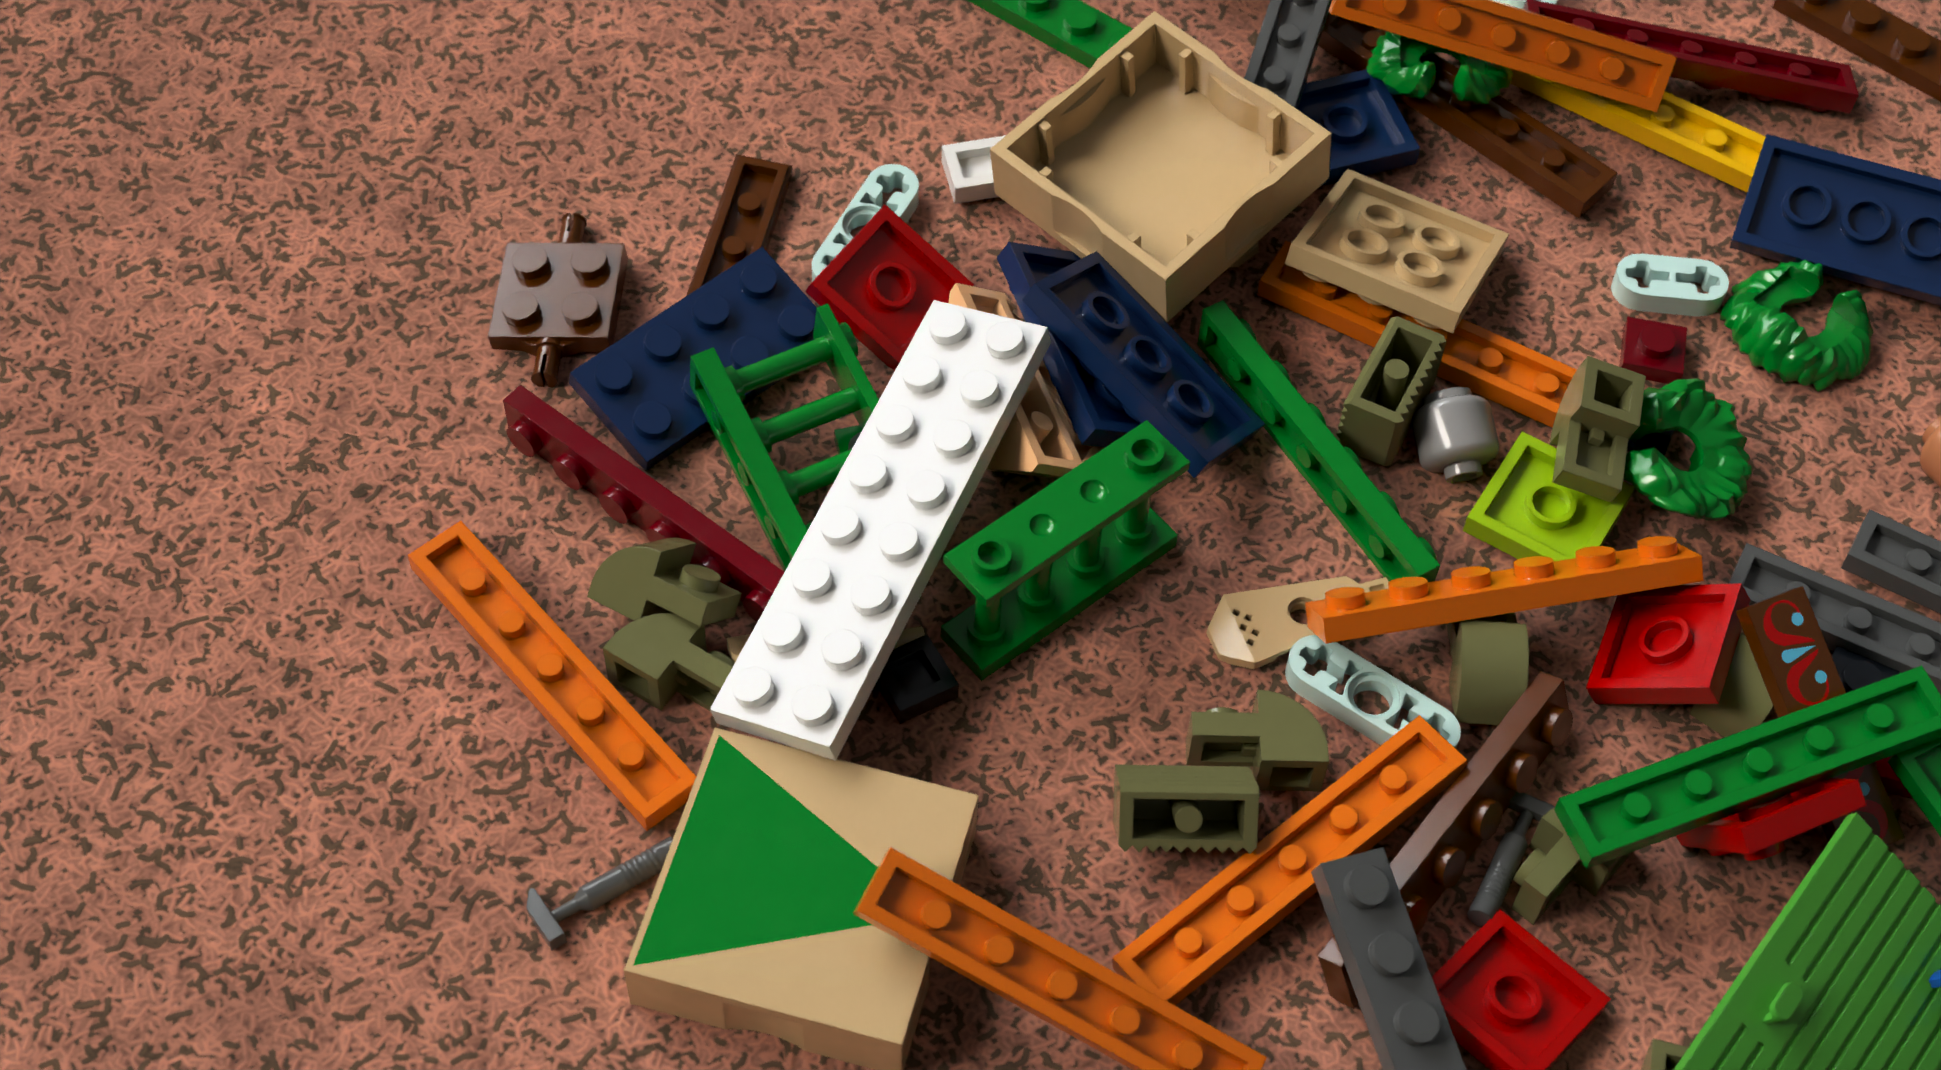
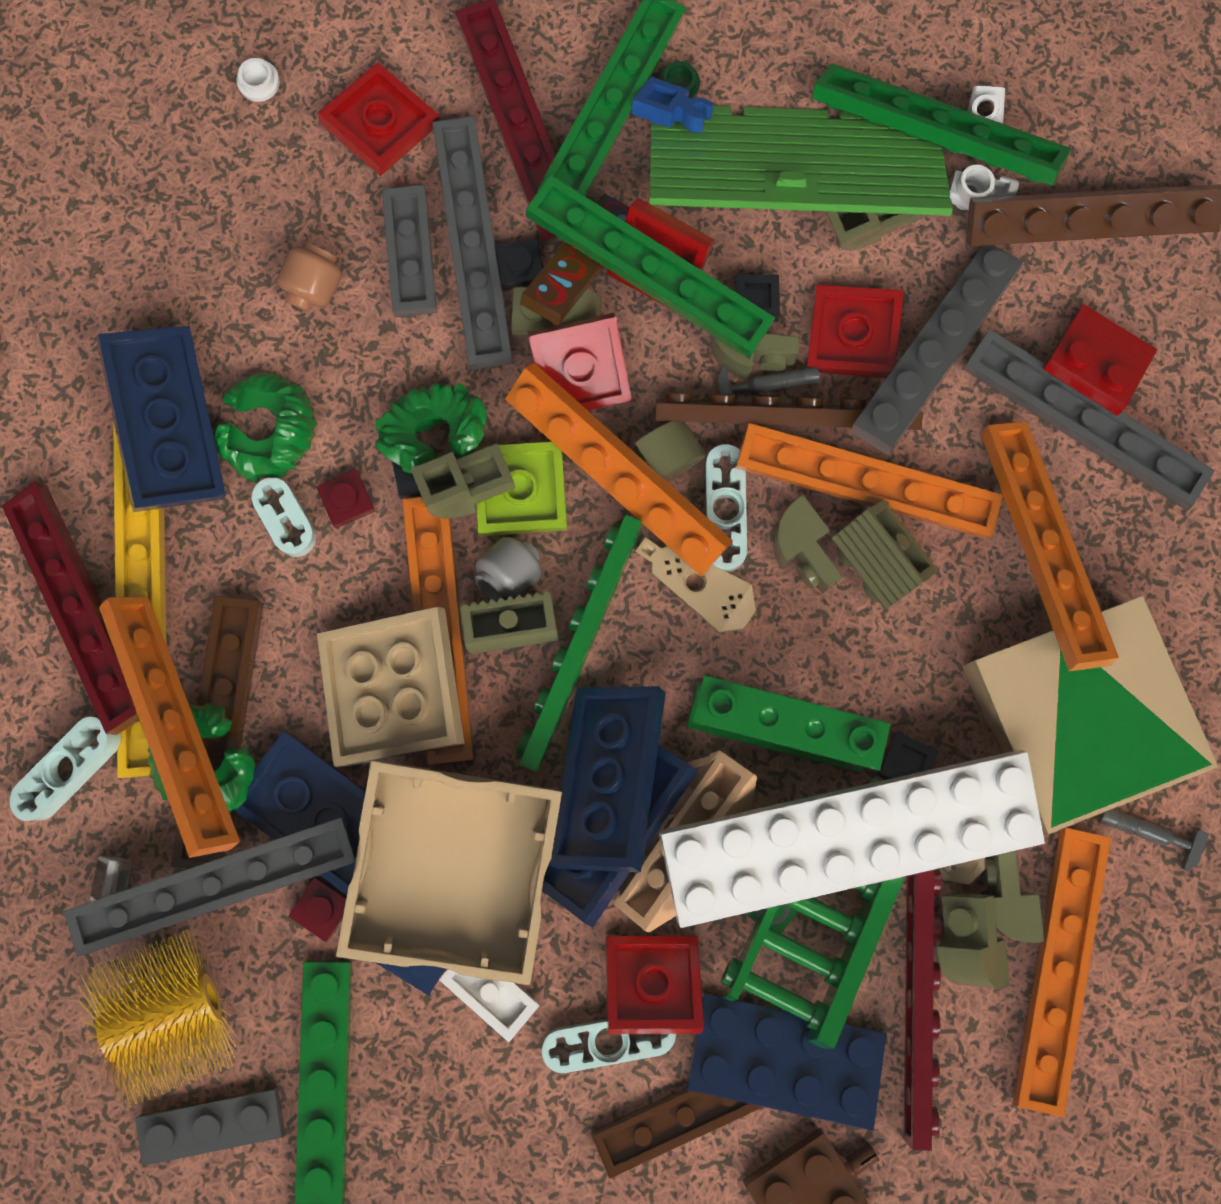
camera: 125 degrees left, 25 degrees up
(1636, 913) = (761, 291): none -> black plate

